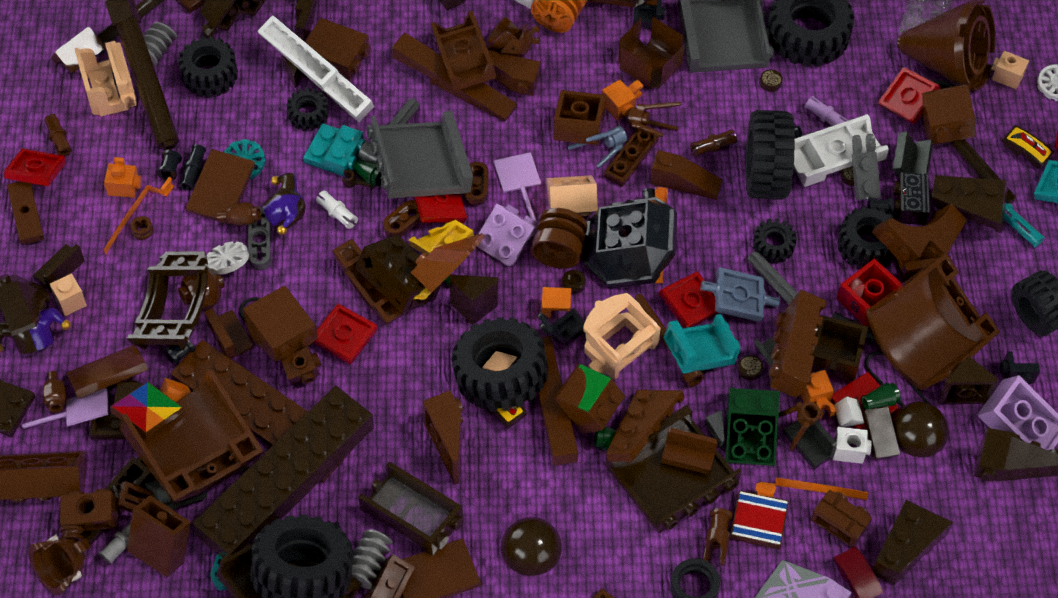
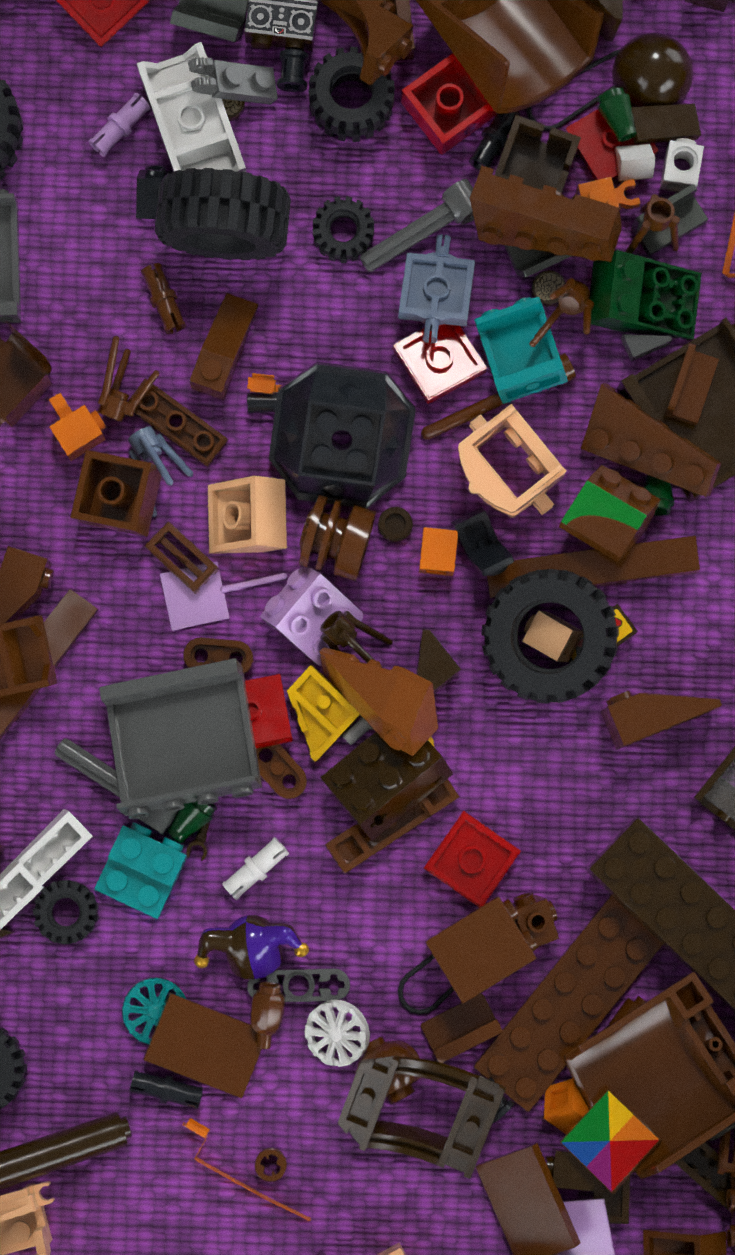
camera: 90 degrees left, 25 degrees up
(122, 179) = (187, 1197): orange brick -> none
(169, 164) = (160, 1126): black bush -> none
(495, 242) = (339, 630): none -> dark brown plant
(547, 167) = (202, 577): none -> reddish brown tile
(742, 374) = (572, 300): none -> reddish brown plant
(771, 80) = (48, 200): dark brown tile -> none

